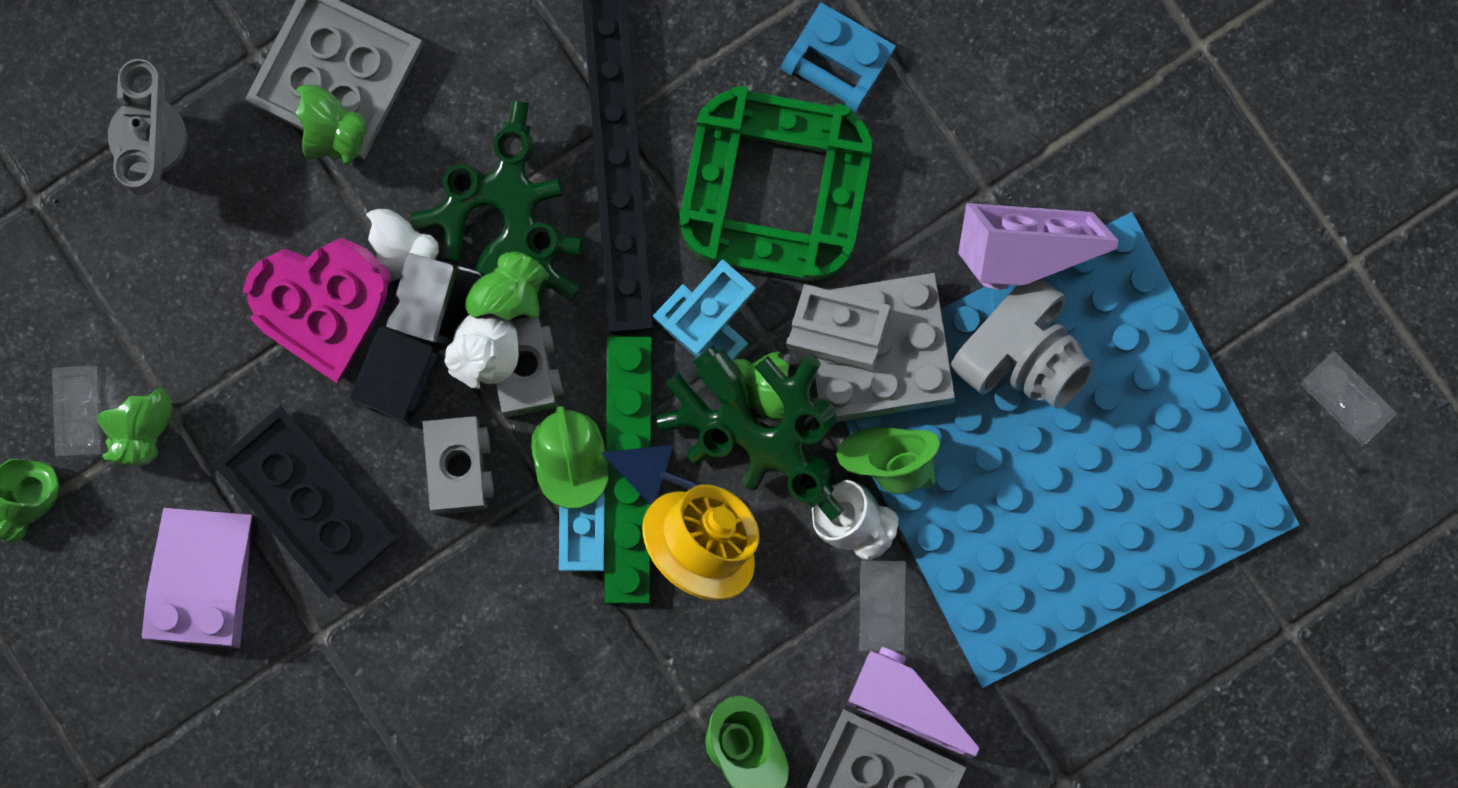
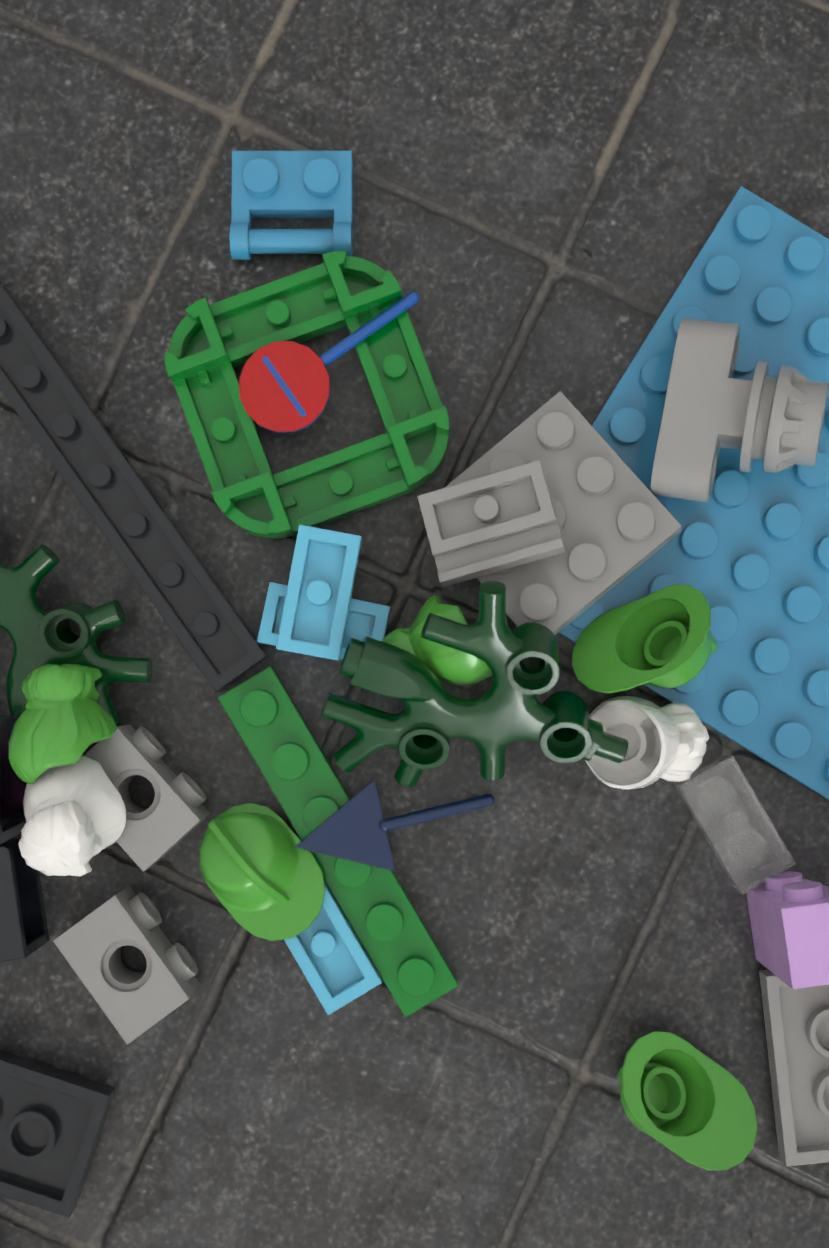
camera: 35 degrees left, 5 degrees up
(702, 541) = (481, 888): yellow piece -> none
(767, 168) = (288, 384): none -> red piece
(1028, 243) = (657, 288): lavender slope -> none

